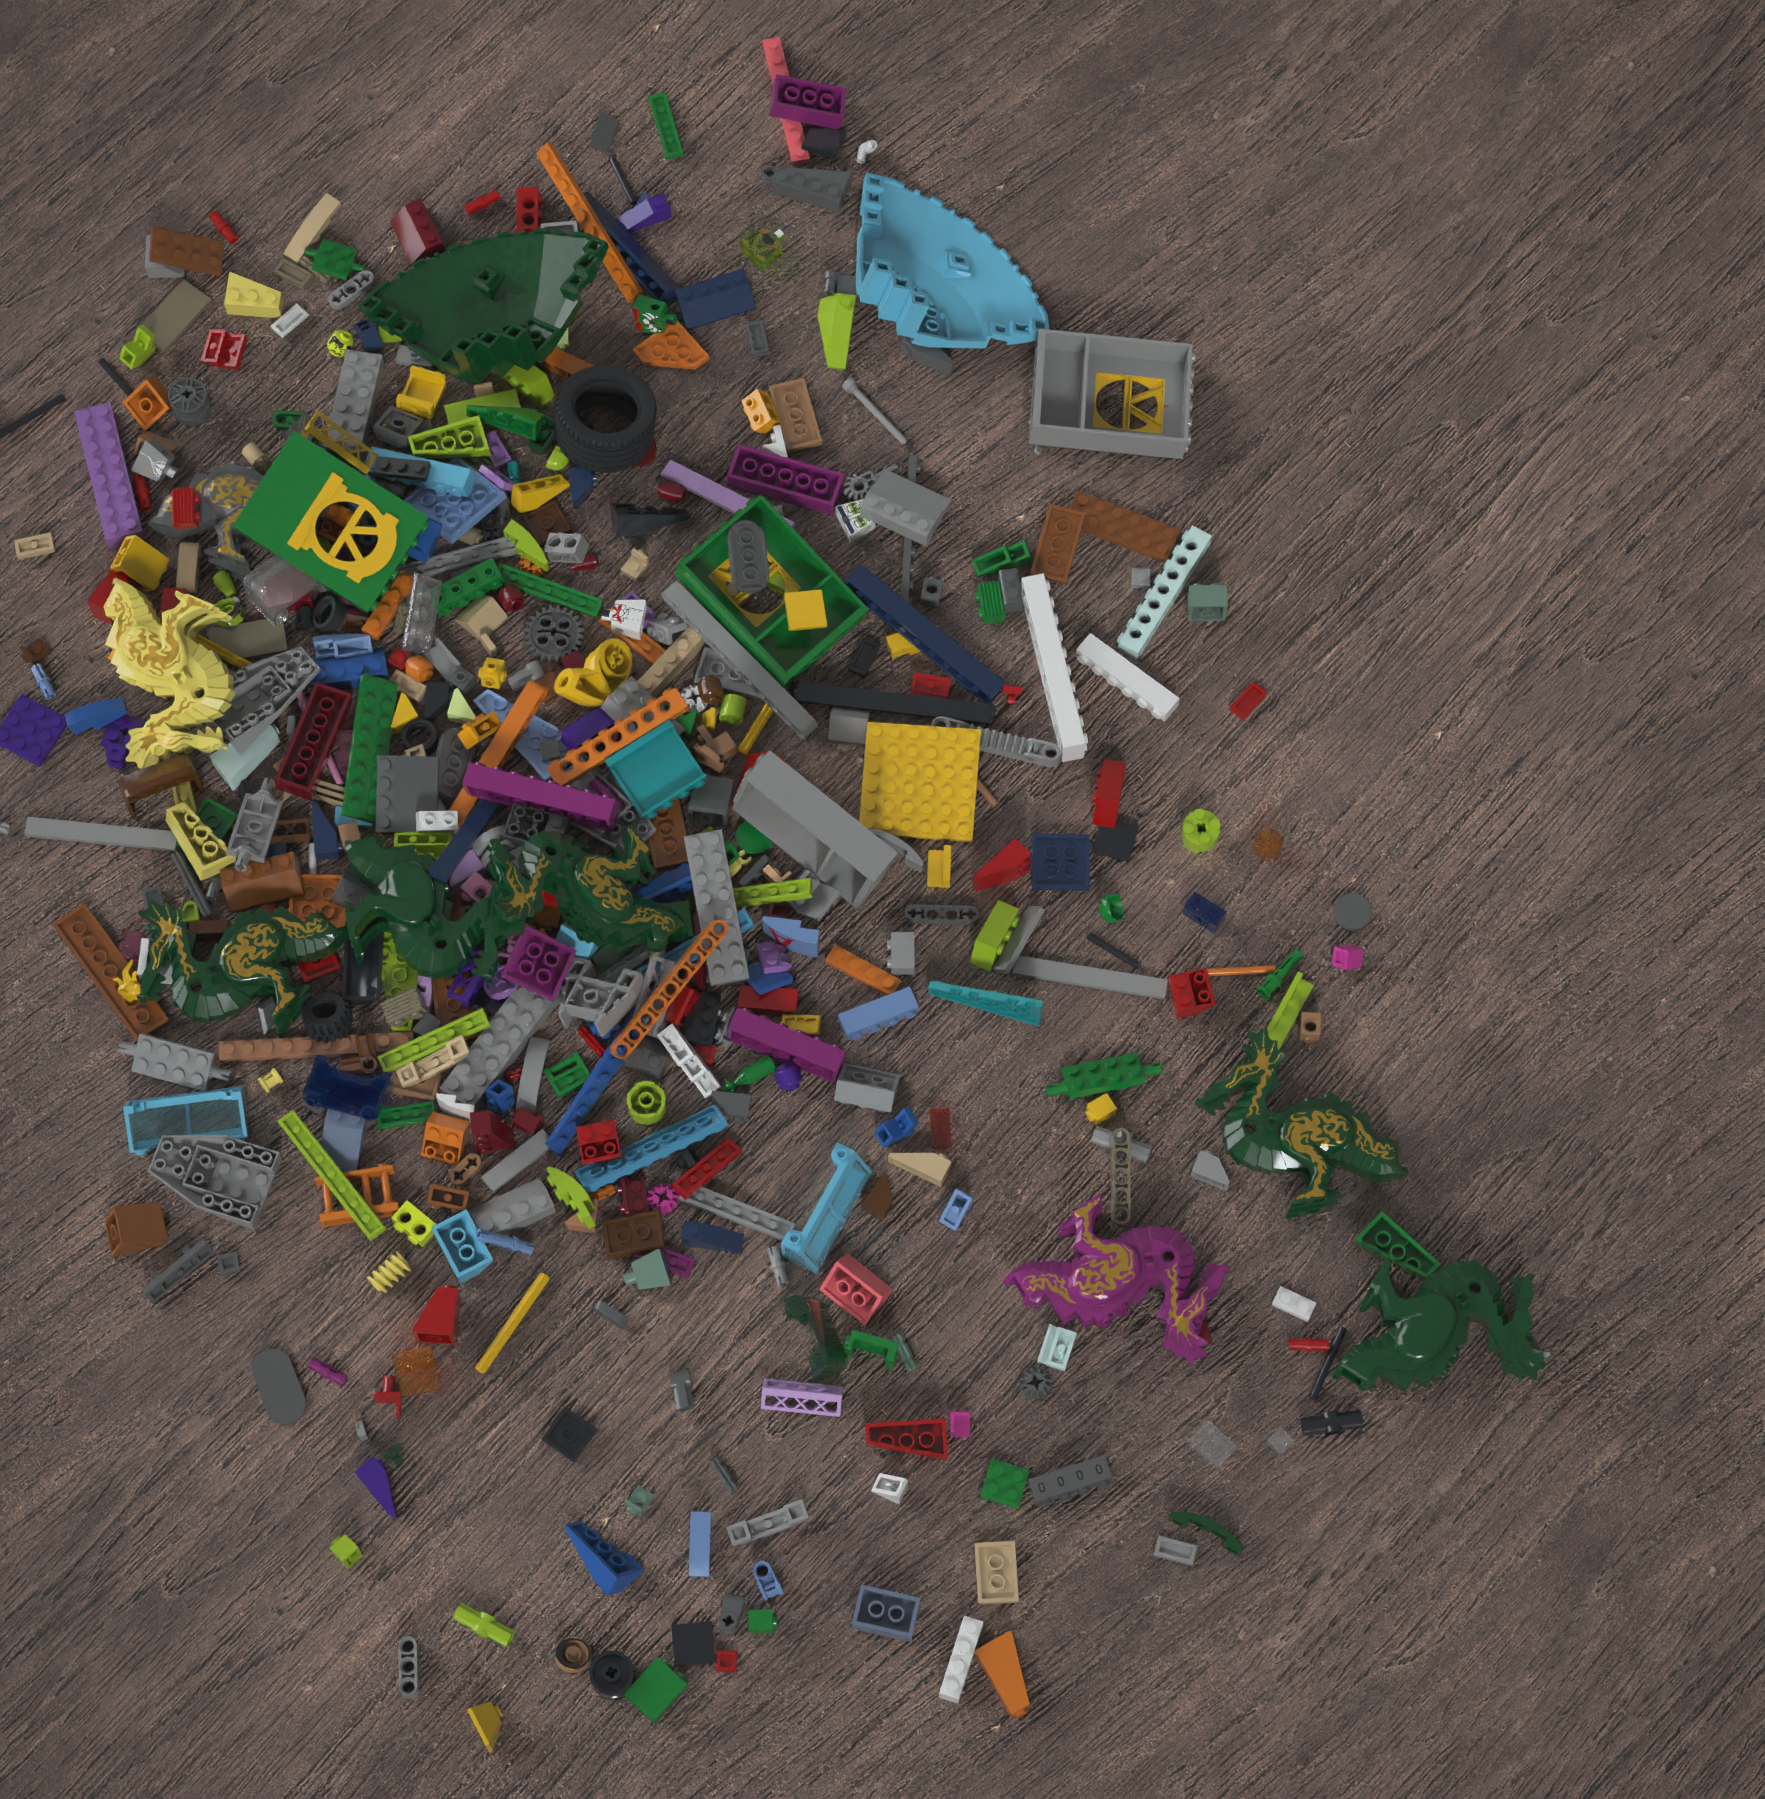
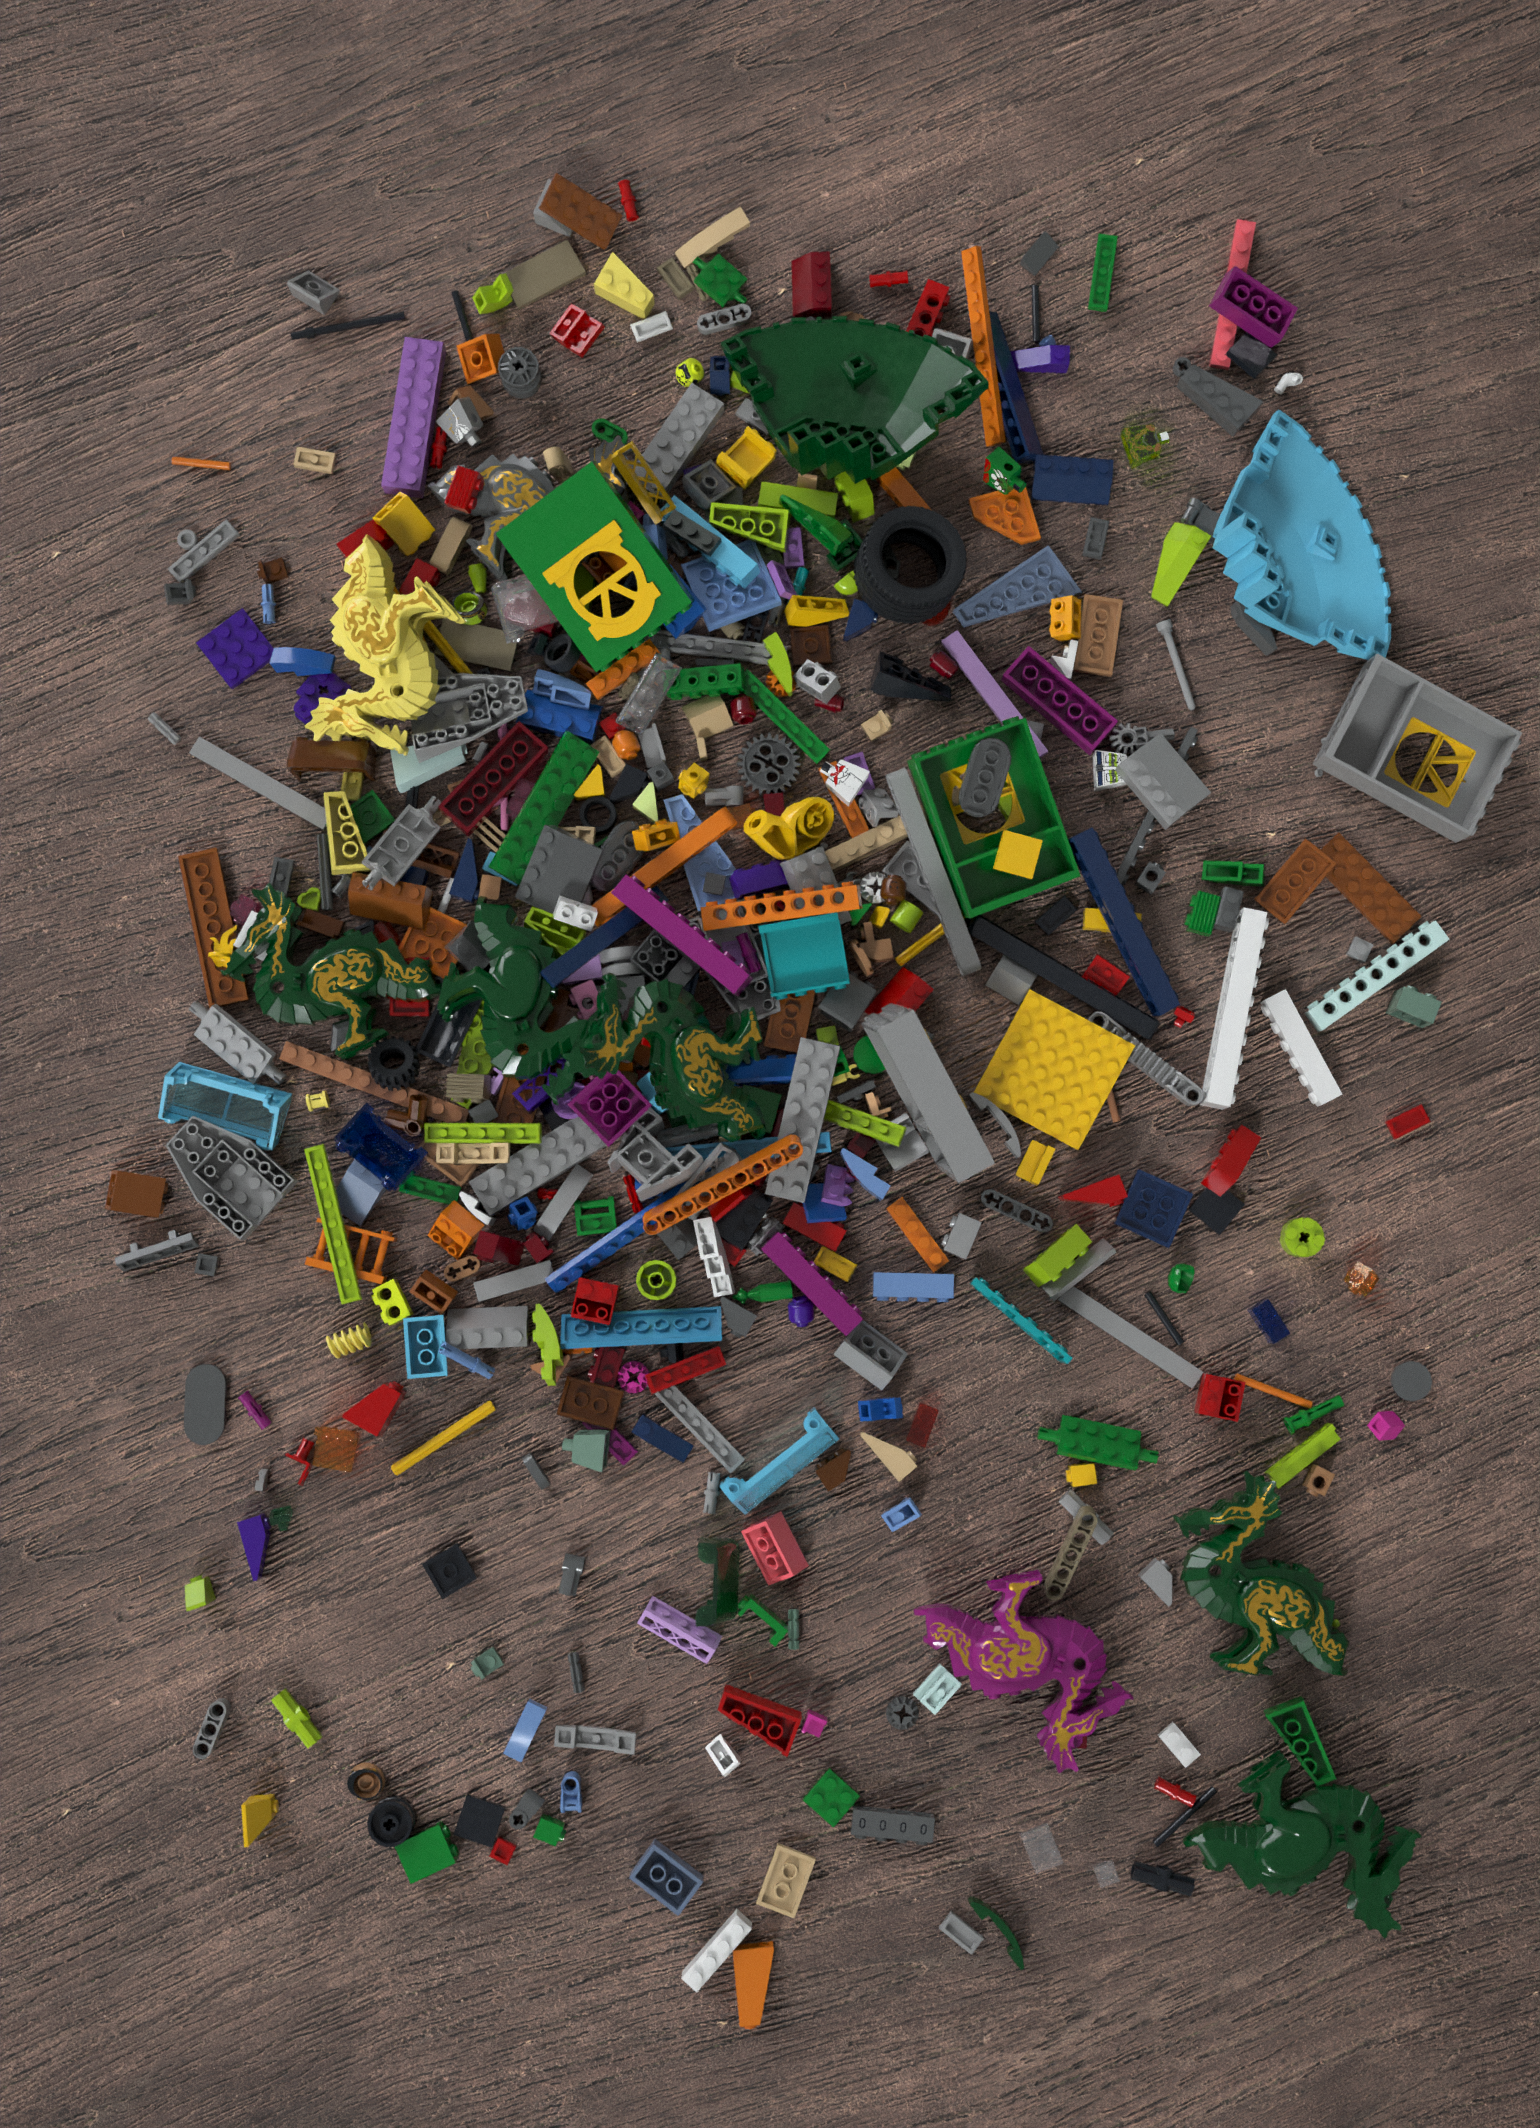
camera: 25 degrees right, 15 degrees up
(607, 1565) = (431, 1708): blue wedge -> none
(712, 403) = (1020, 589): none -> sand blue wing

